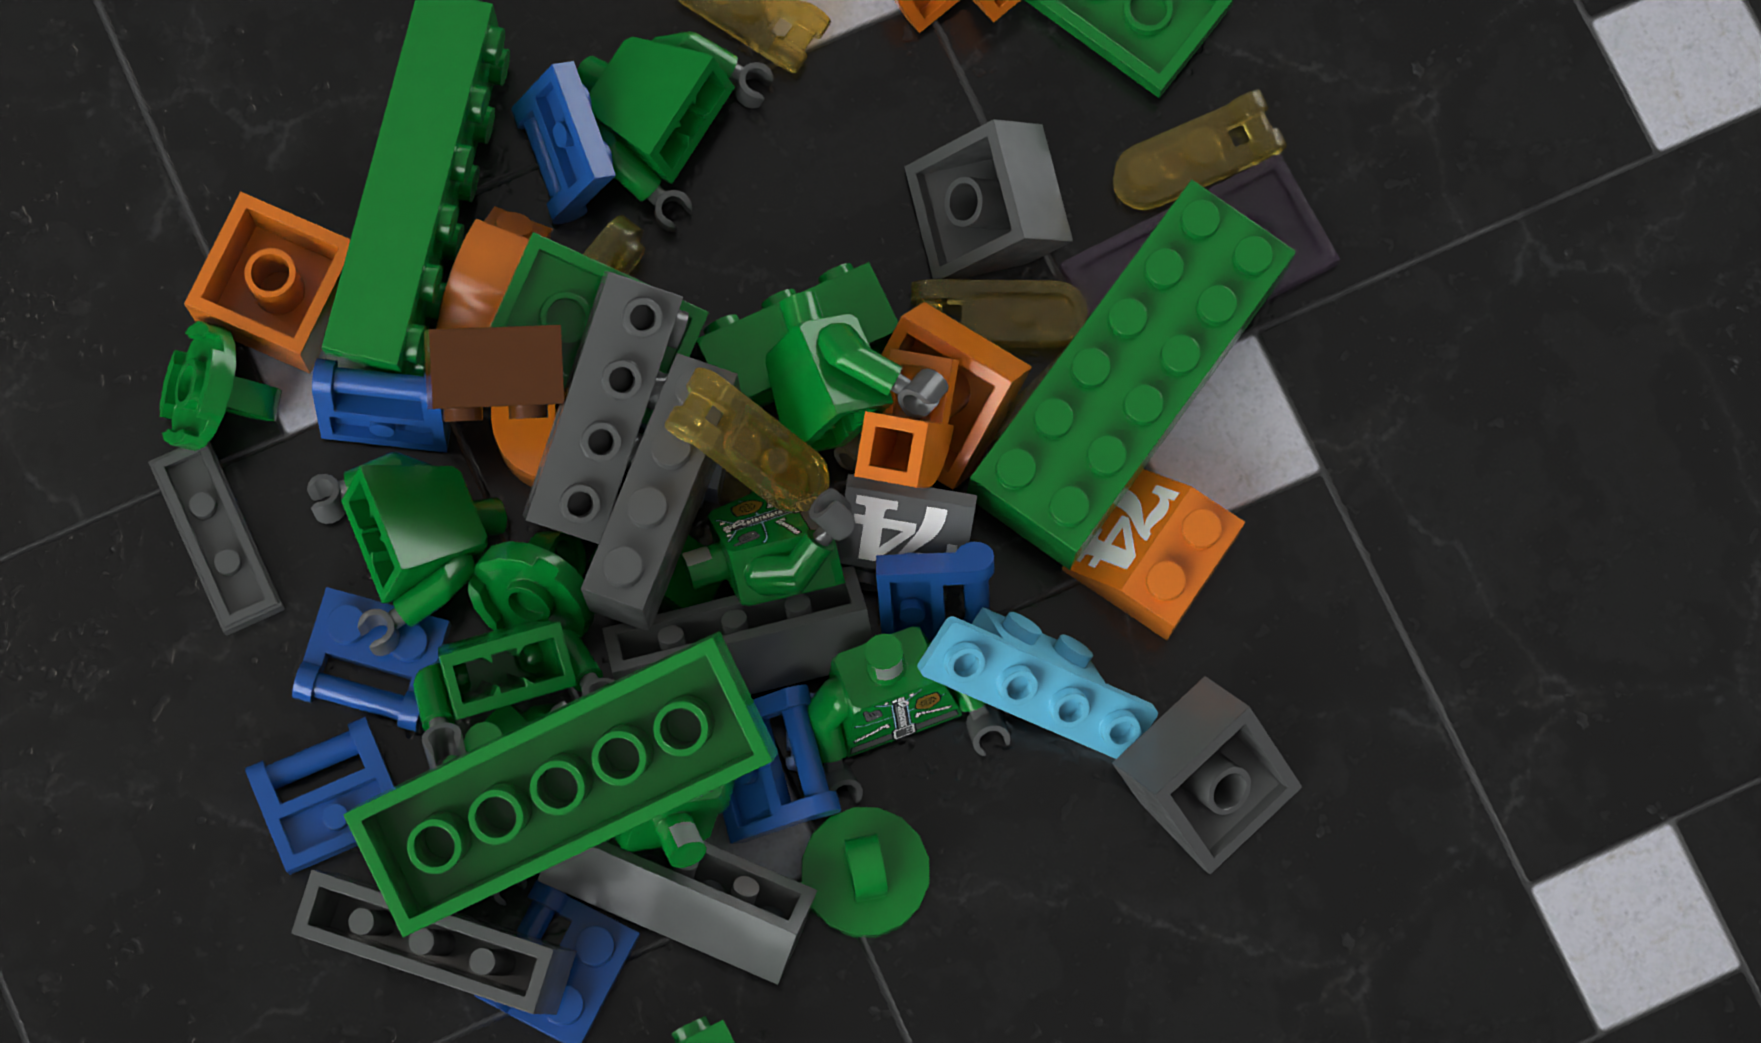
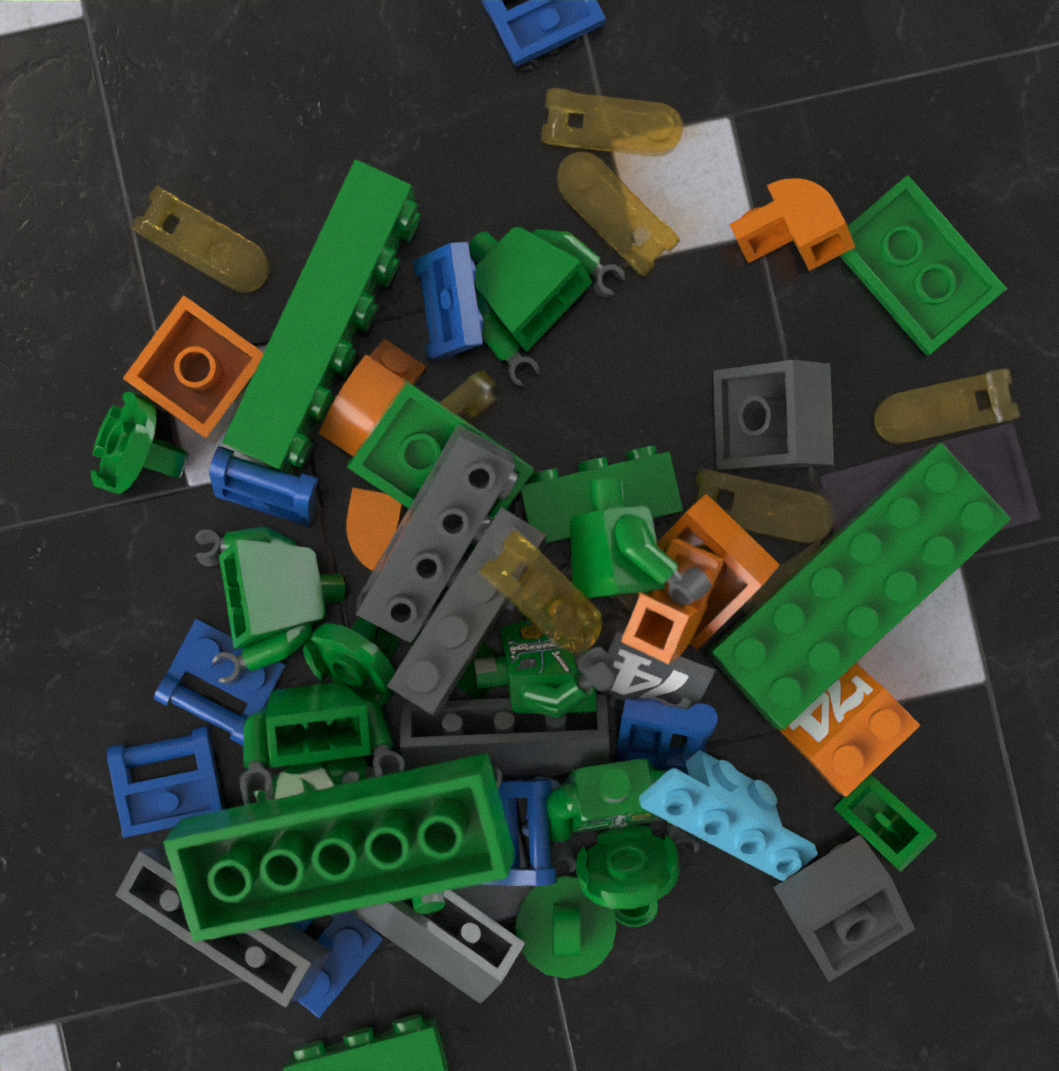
camera: 10 degrees right, 10 degrees up
(217, 537) = (119, 560): dark grey tile -> none
(249, 138) = (203, 243): none -> clear yellow plate
(494, 369) = (353, 491): reddish brown brick -> none
(926, 775) = (628, 872): none -> green tile
(1231, 655) = (885, 823): none -> green slope

